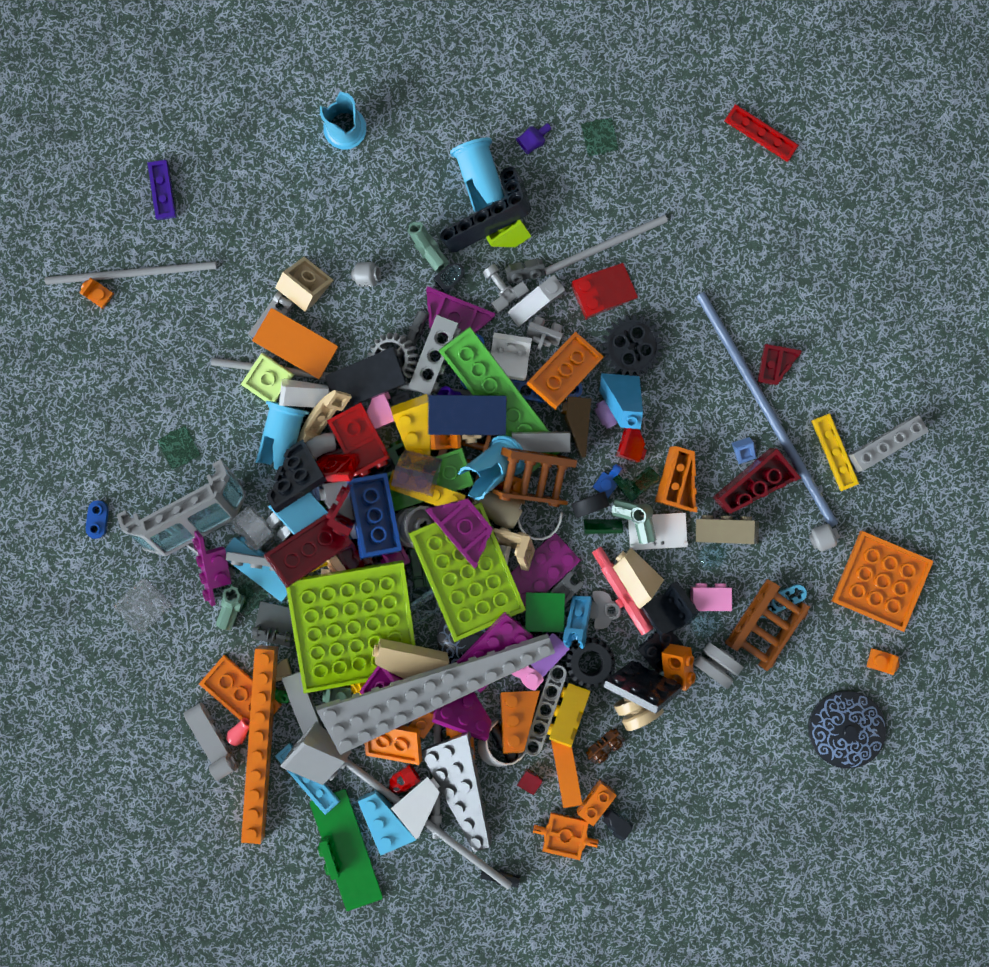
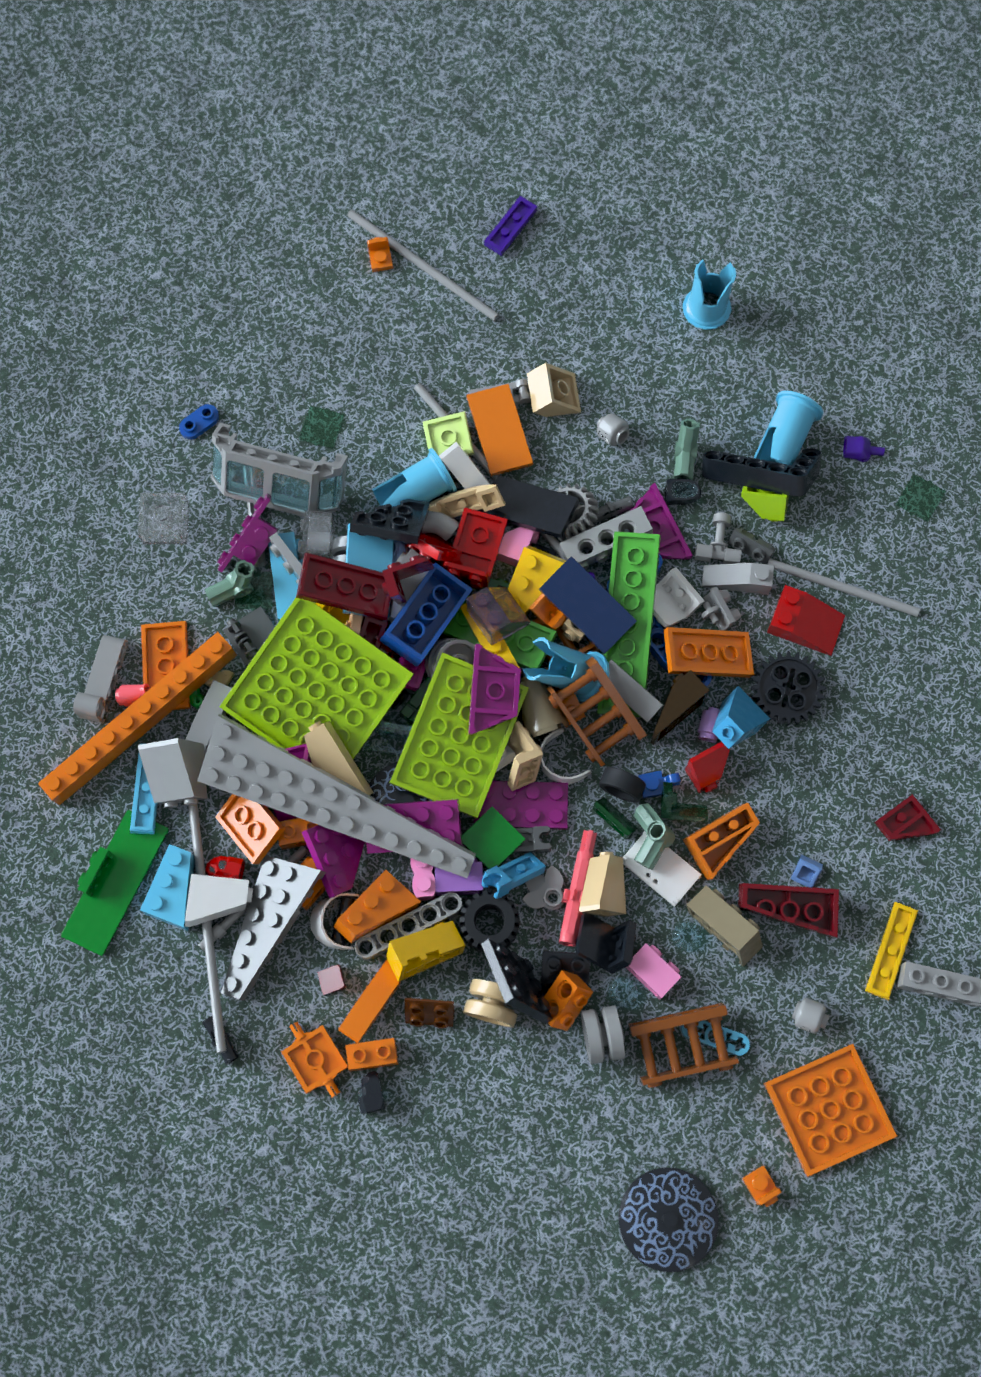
camera: 45 degrees right, 15 degrees down
(767, 410) = (860, 858): sand blue piece -> none

